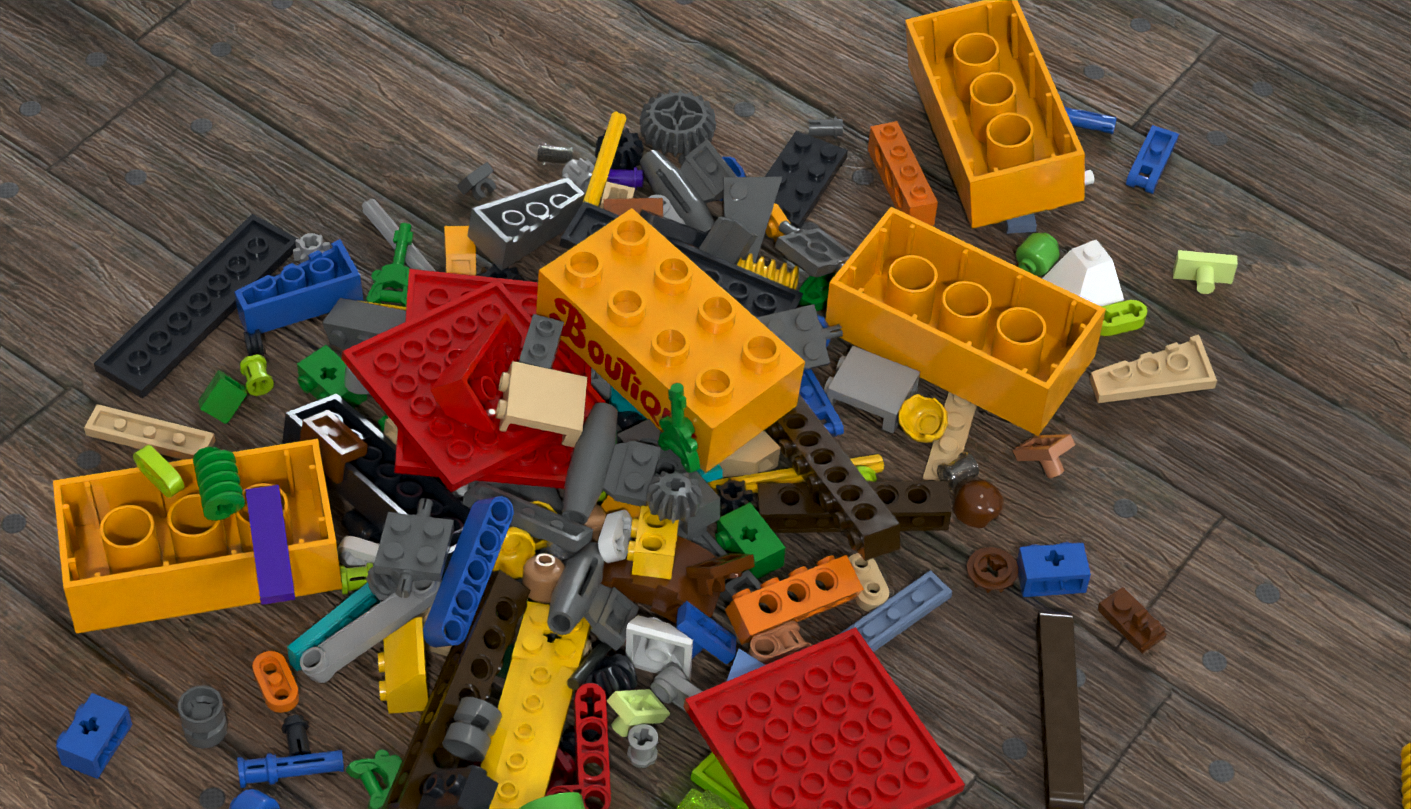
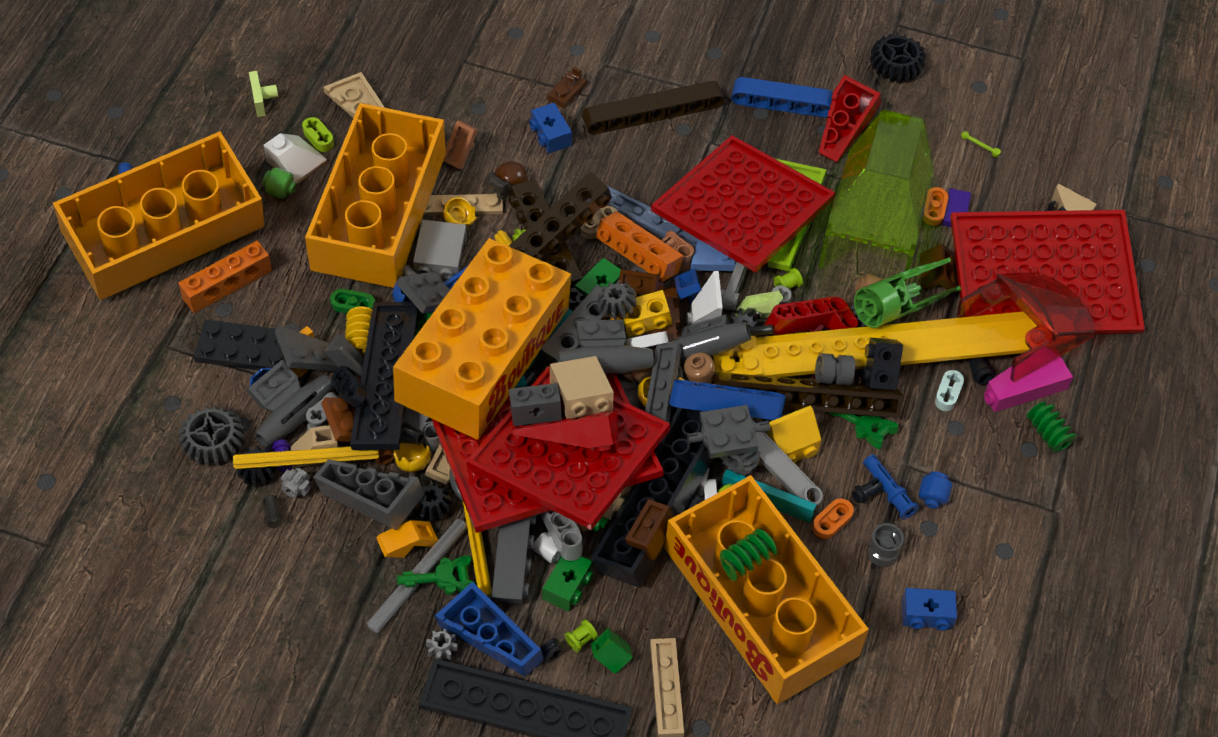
camera: 110 degrees left, 5 degrees up
(158, 471) = (751, 601): lime beam -> none
(270, 544) = (775, 509): dark purple tile -> none
(476, 180) = (321, 555): dark grey tile -> none
(672, 770) = (789, 280): none -> lime bush
(678, 431) = (568, 304): green piece -> none
(812, 250) = (334, 299): dark grey plate -> none
(826, 127) = (182, 334): dark grey pin -> none
(997, 560) = (563, 153): reddish brown gear -> none
(1152, 159) = (154, 138): blue plate -> none

